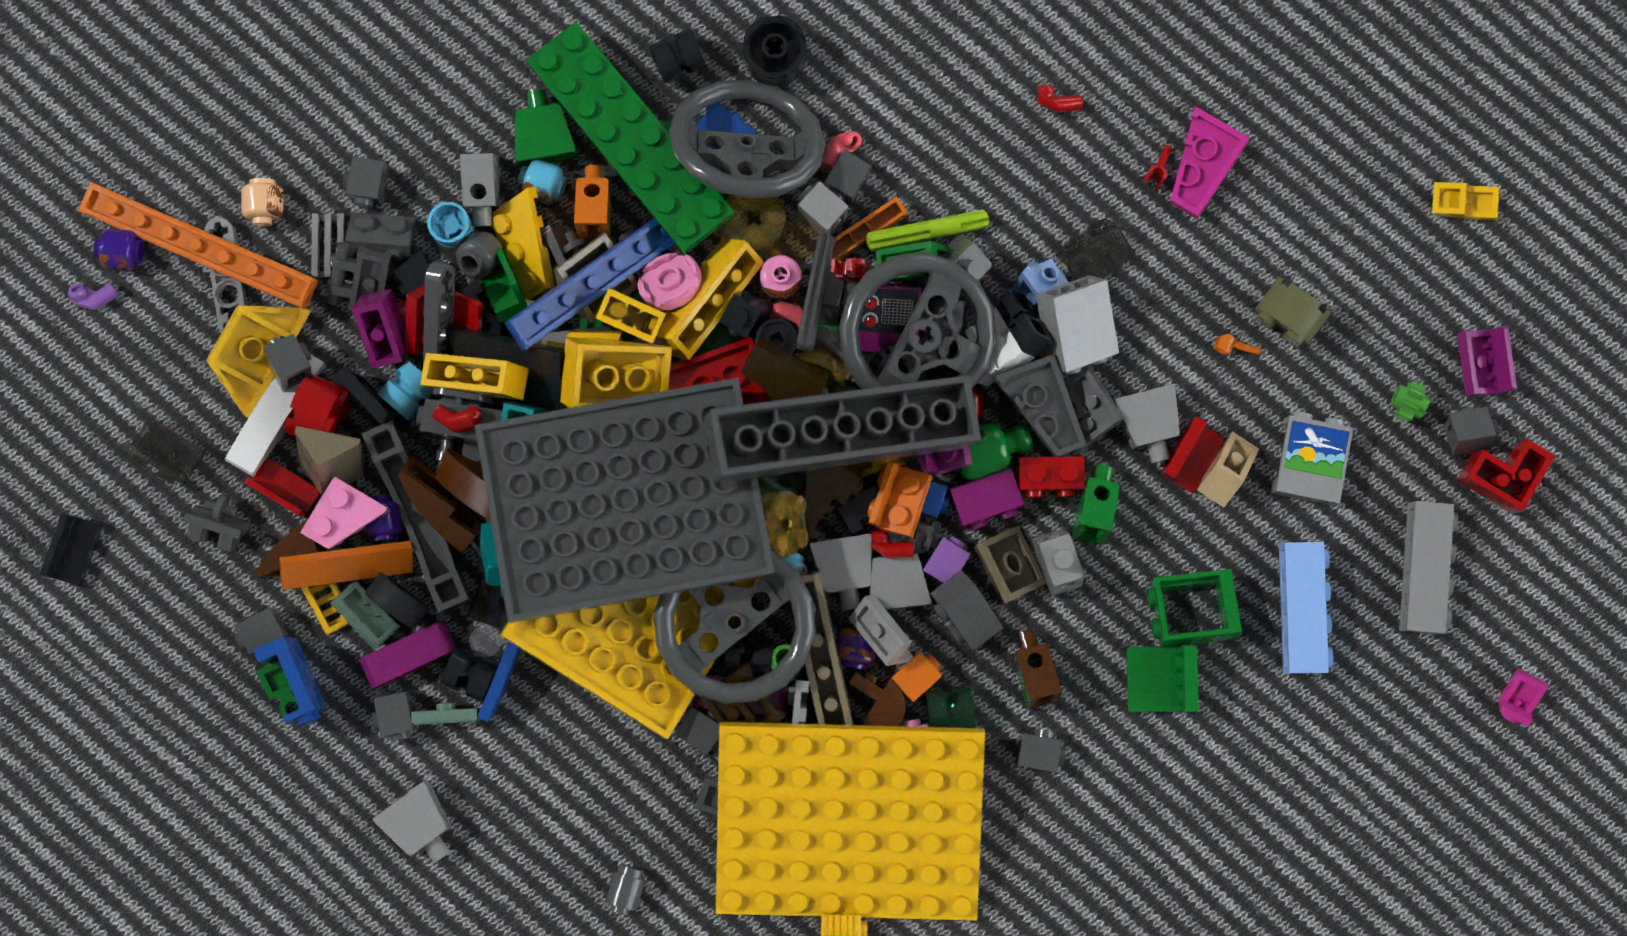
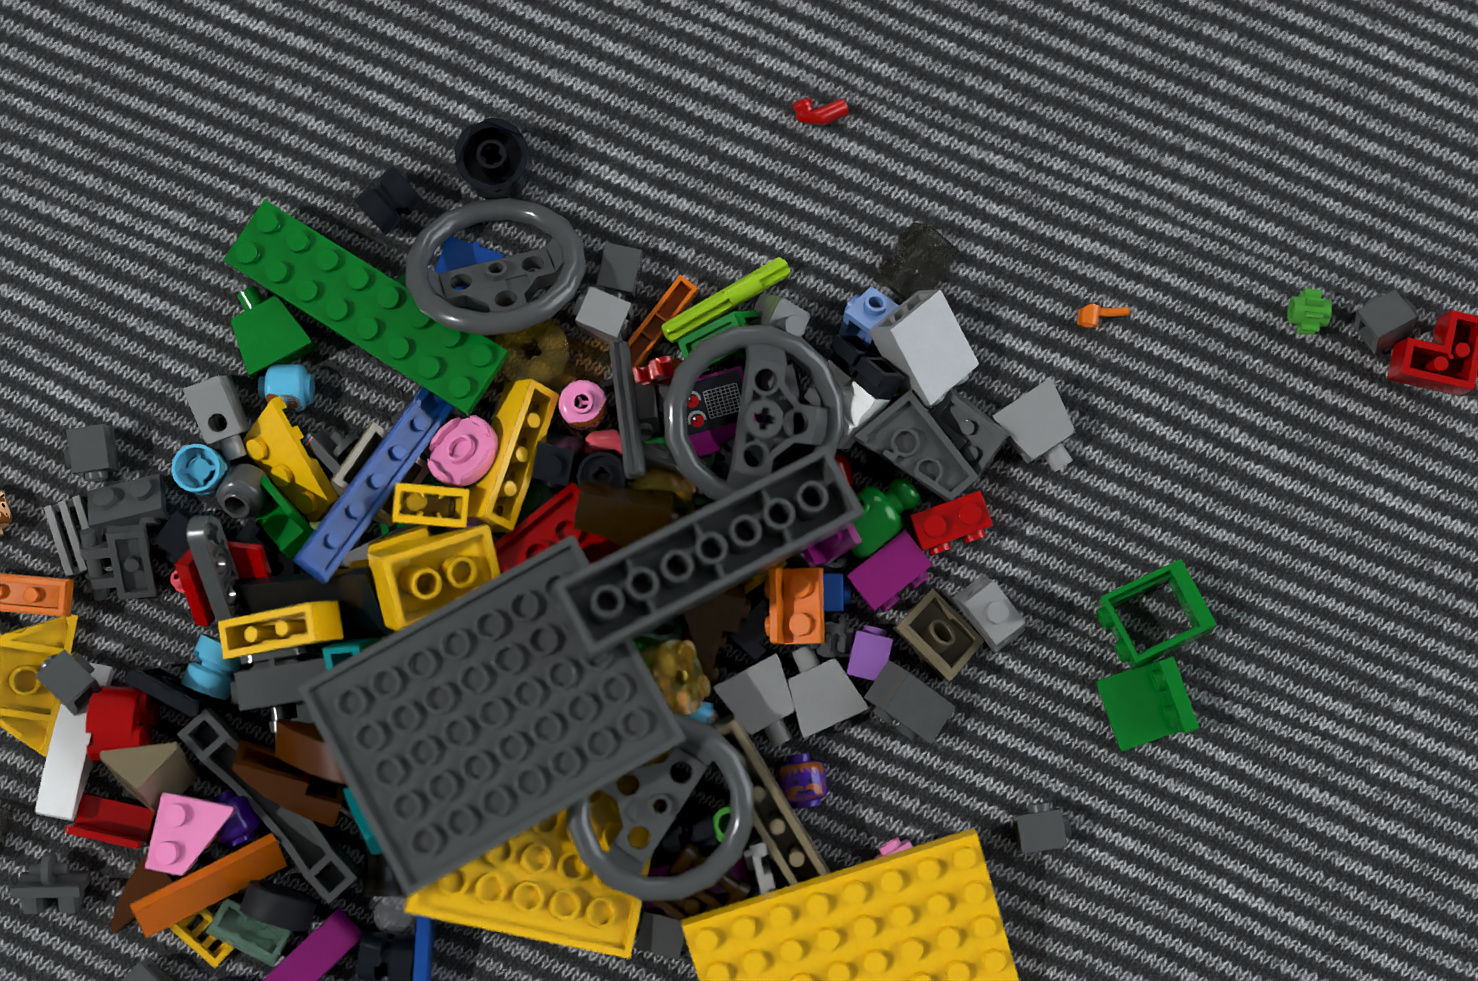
camera: 20 degrees left, 0 degrees up
(380, 328) = (160, 609): magenta brick -> none
(459, 421) = (280, 686): red arm -> none
(593, 204) = (350, 394): orange torso -> none
(846, 141) = (606, 231): coral arm -> none
(881, 631) = (824, 758): light grey panel -> none
(888, 704) = (859, 833): reddish brown brick -> none
(891, 549) = (801, 663): red arm -> none
(917, 675) = (879, 791): orange brick -> none
(951, 708) = (928, 815): clear green wheel -> none
(1041, 684) = (1019, 754): reddish brown torso -> none
(1095, 516) = (1012, 554): green torso -> none
(1158, 171) = (953, 153): red hand -> none
(1192, 455) = (1095, 448): red panel -> none
(1206, 161) = (1002, 122): dark pink wing -> none
(1228, 469) = (1139, 451): tan slope -> none
(1291, 312) = (1150, 257): olive brick -> none
(1304, 607) = (1273, 574): light blue brick -> none
(1313, 459) = (1228, 408): panel -> none
(1427, 567) = (1390, 485): light grey brick -> none
(1465, 201) = (1294, 75): yellow slope -> none
(1487, 361) = (1377, 240): magenta bracket -> none

